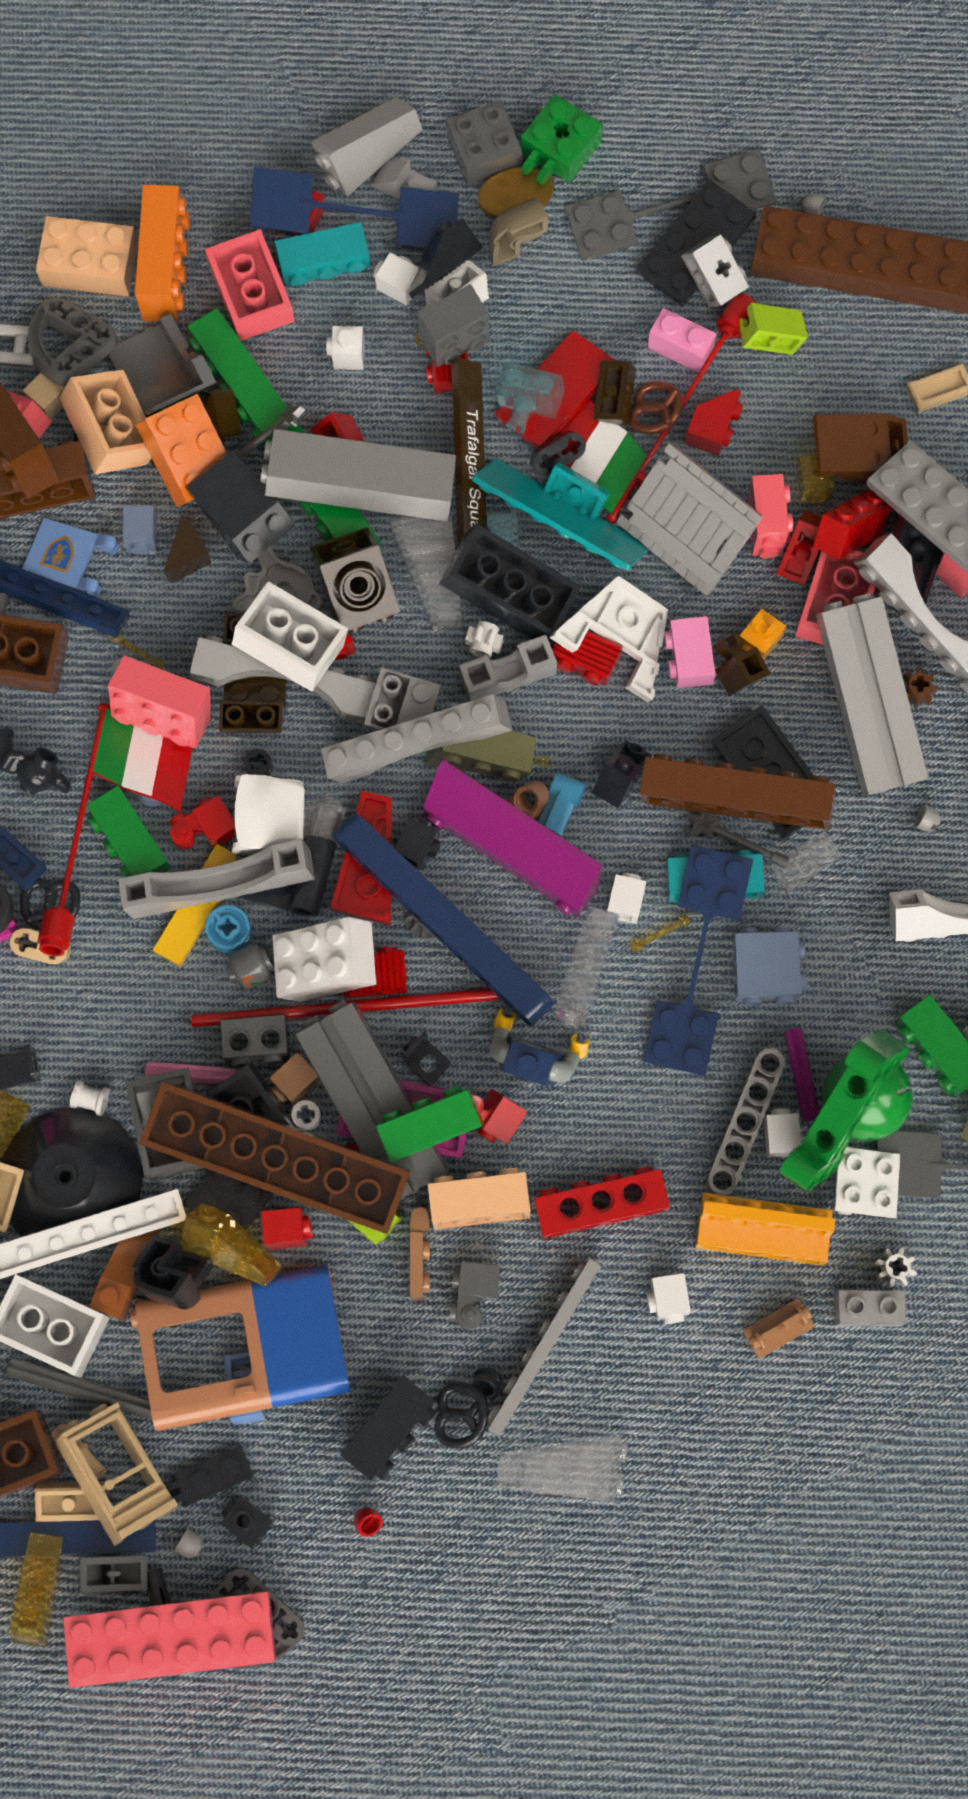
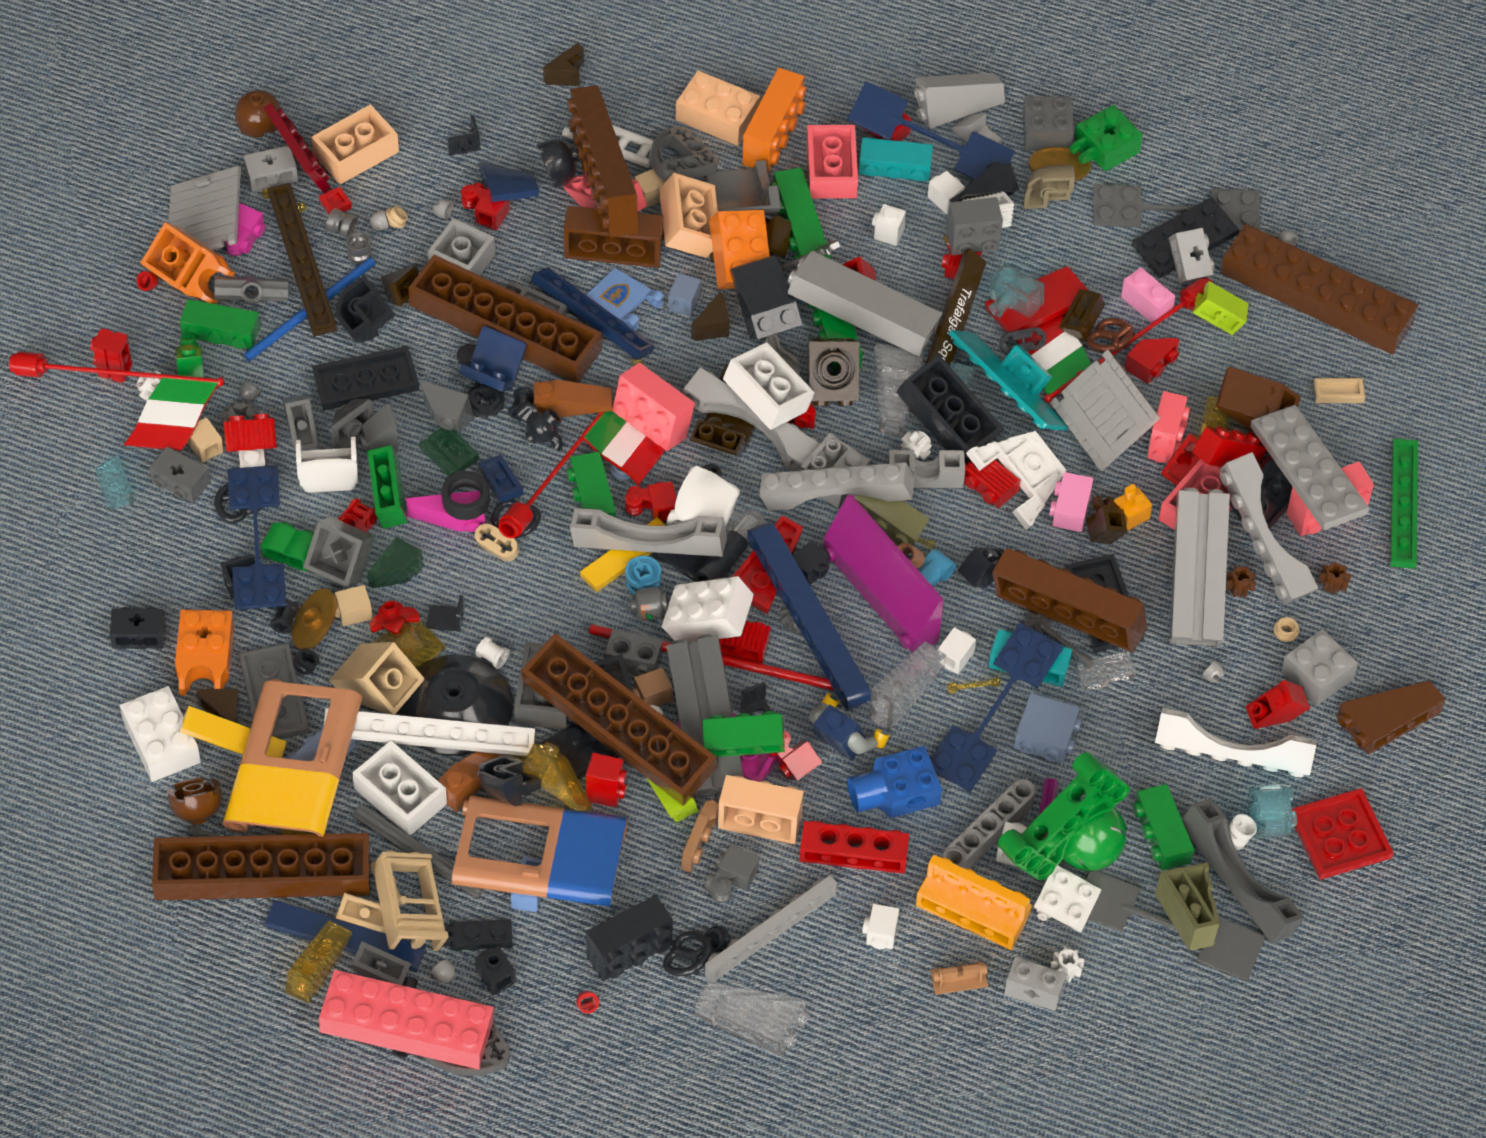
camera: 15 degrees right, 20 degrees down
(58, 721) = (572, 398): none -> dark orange slope
(621, 1104) = (897, 784): none -> blue brick

